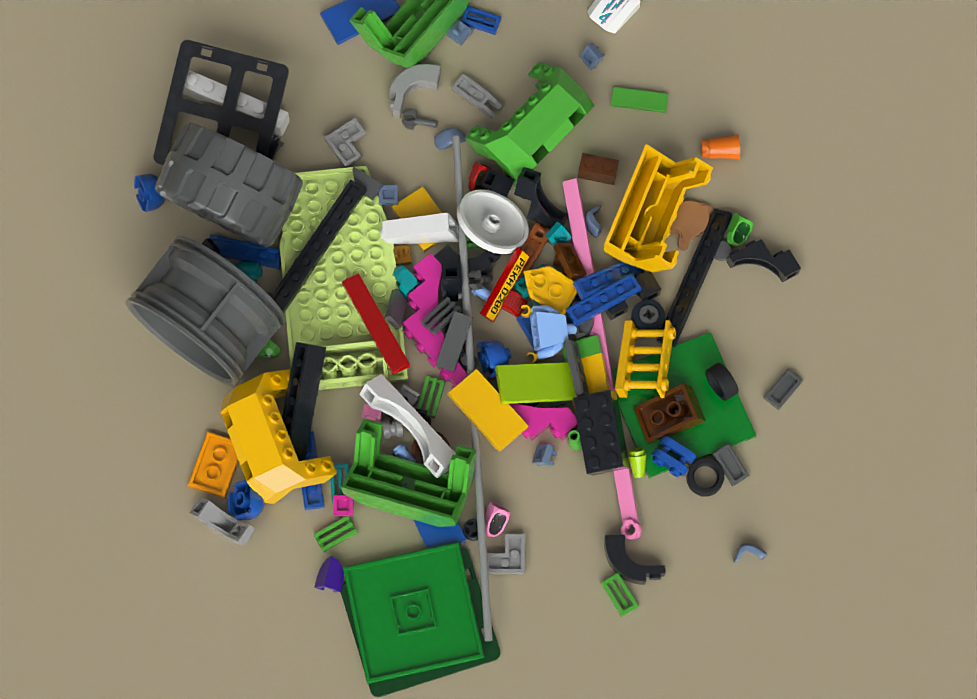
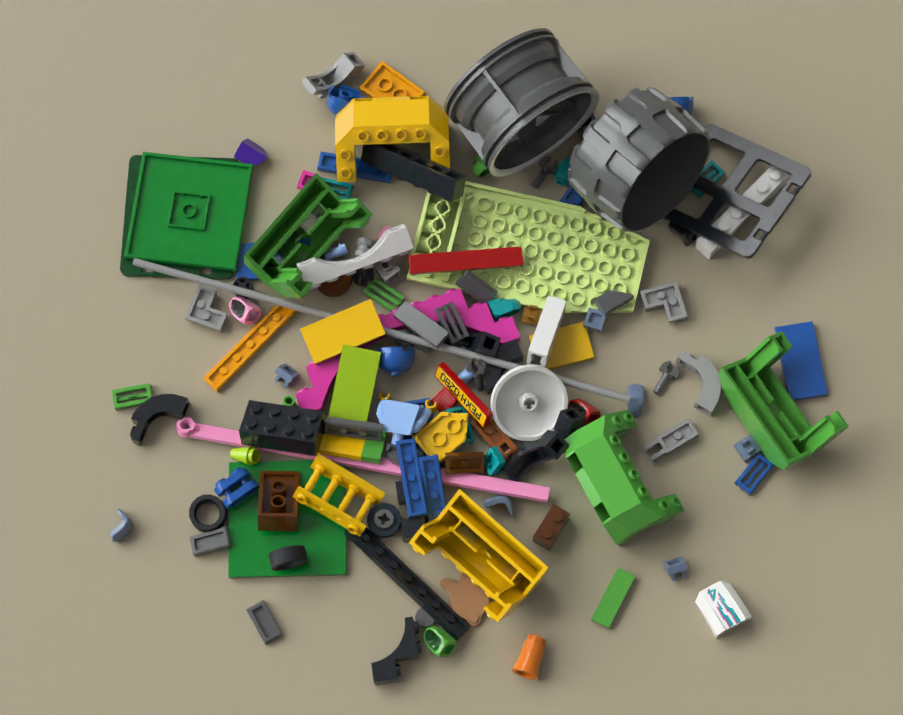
camera: 115 degrees right, 0 degrees up
(318, 244) = (565, 237): black tile -> none
(349, 525) = (291, 186): bright green tile -> none
(530, 504) = (248, 346): none -> light orange tile

